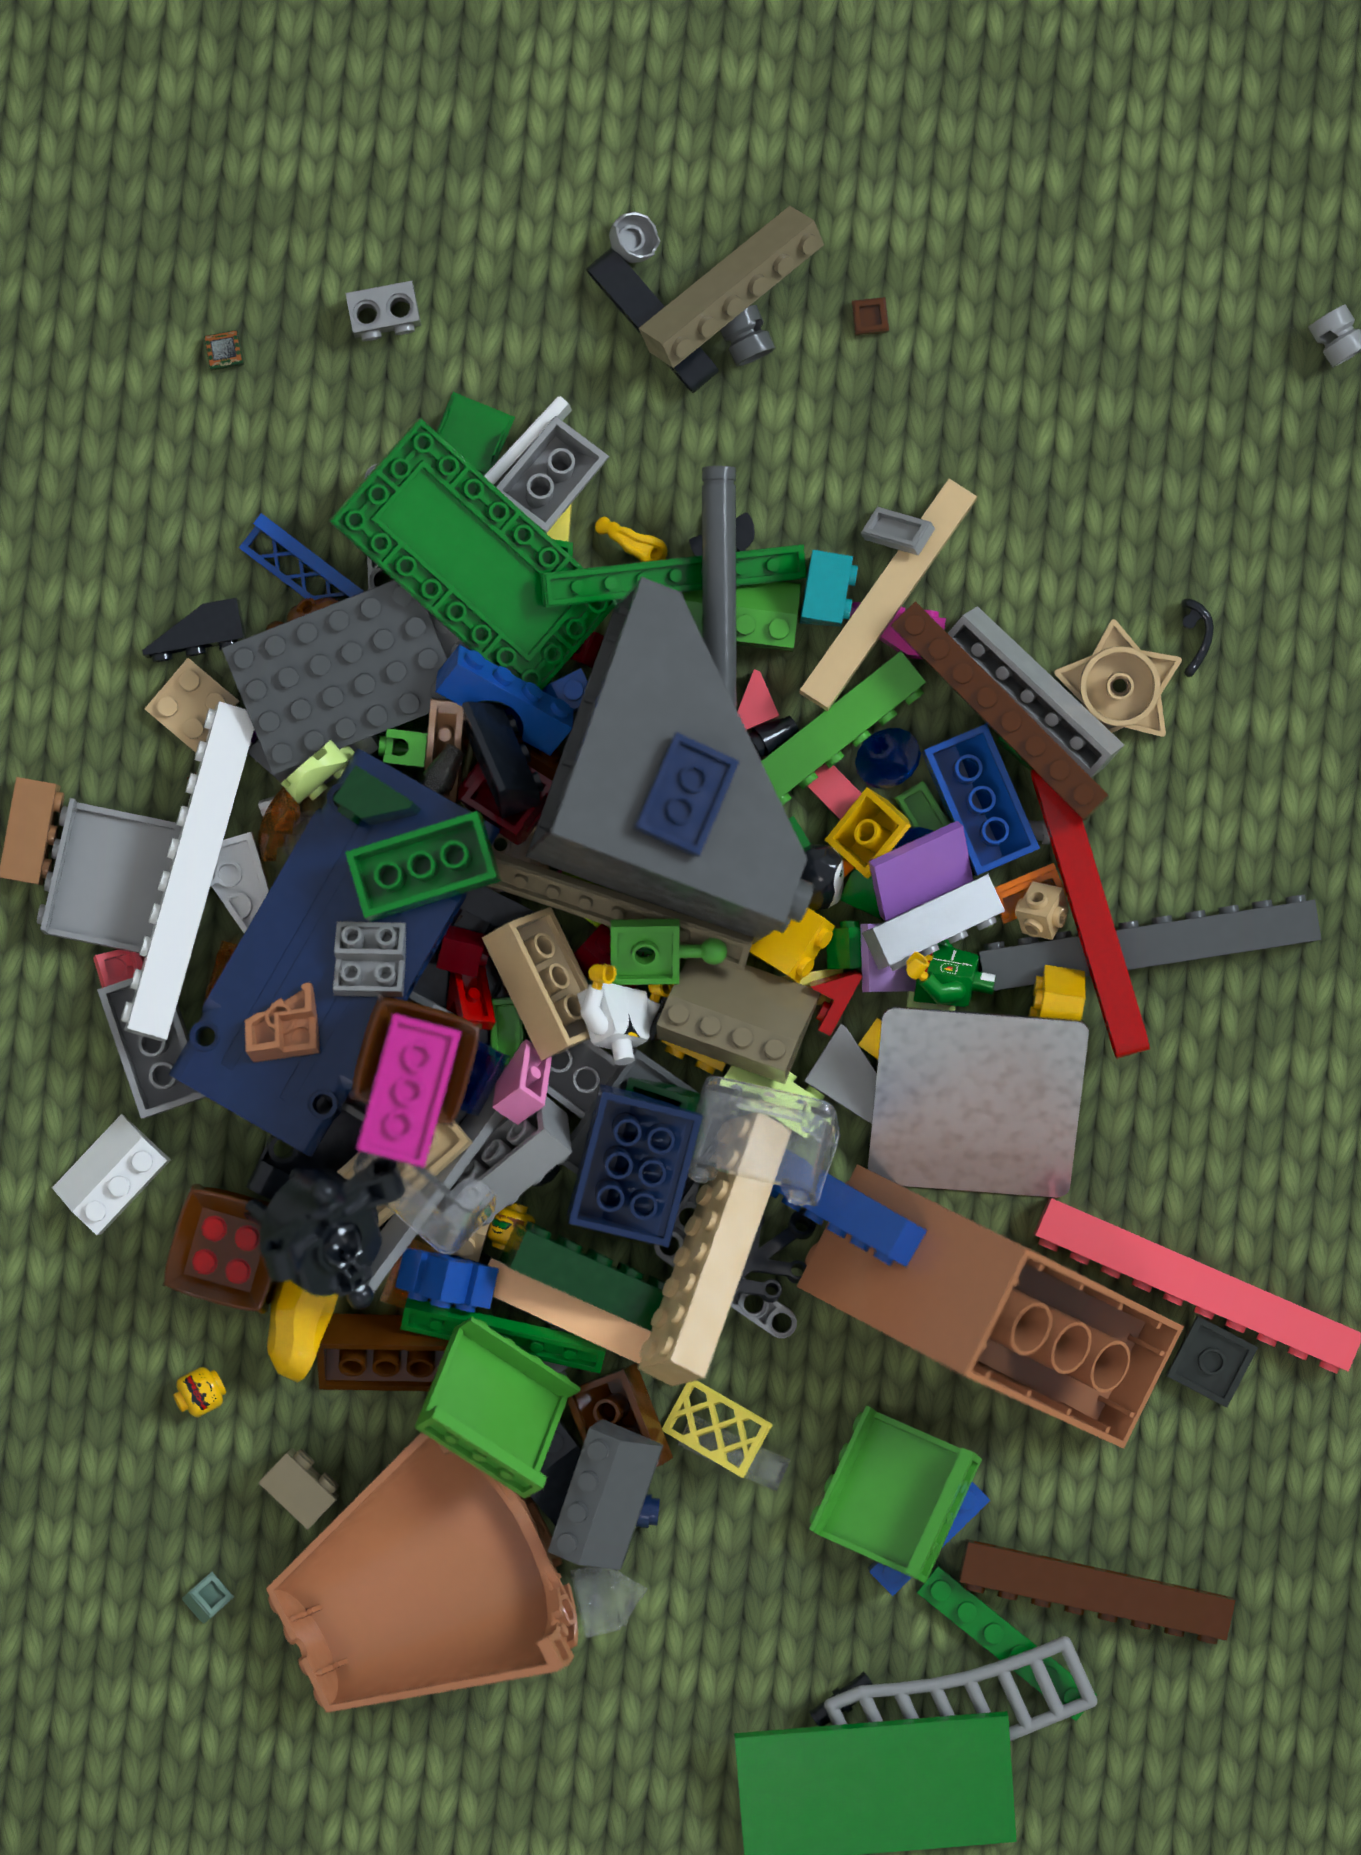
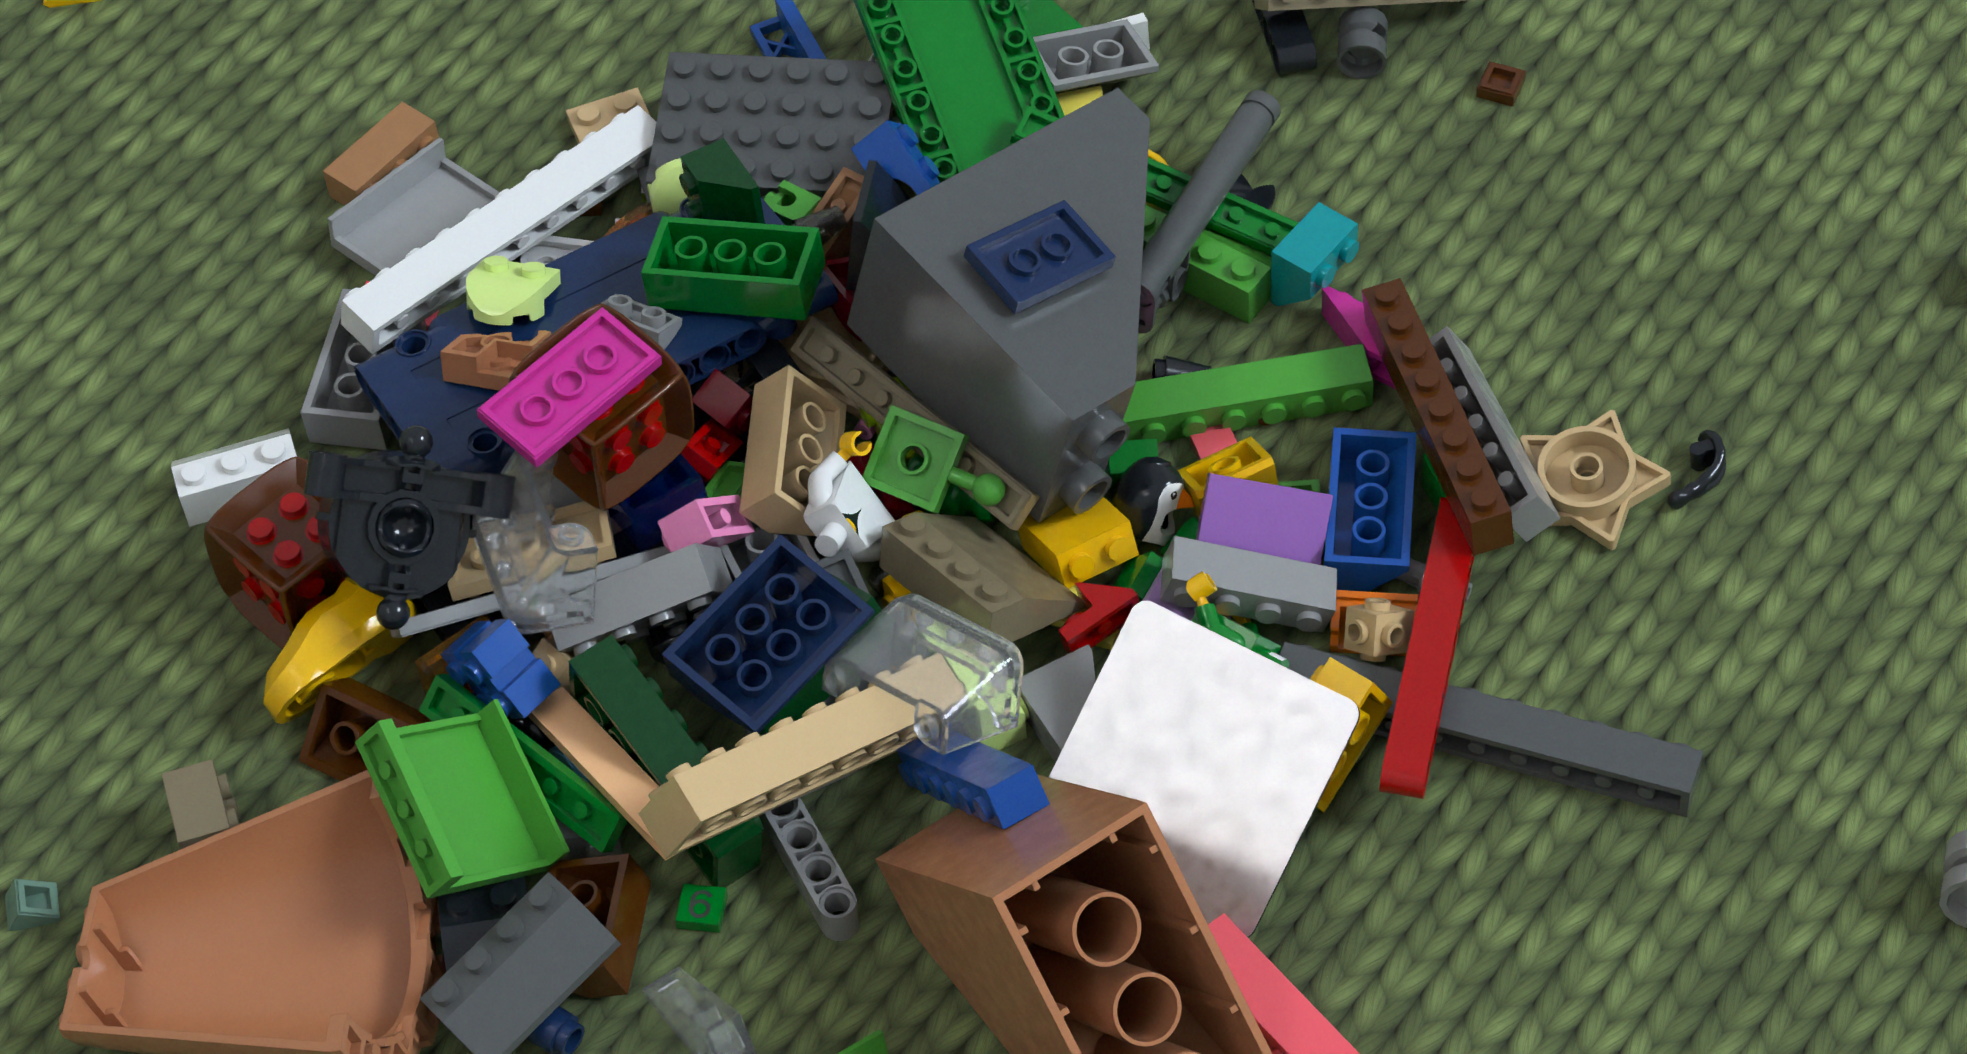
camera: 30 degrees right, 35 degrees down
(199, 1392) = (173, 697): yellow head -> none
(207, 626) = (643, 64): black slope -> none
(252, 958) = (509, 289): none -> yellowish green slope
(741, 1415) = (715, 999): light yellow window -> none
(757, 704) = (1174, 337): coral slope -> none
(759, 1261) = (804, 823): black plant -> none
(885, 599) = (1344, 297): tan tile -> none
(888, 758) = (1292, 434): clear blue piece -> none
(897, 530) = (1421, 247): light grey tile -> none

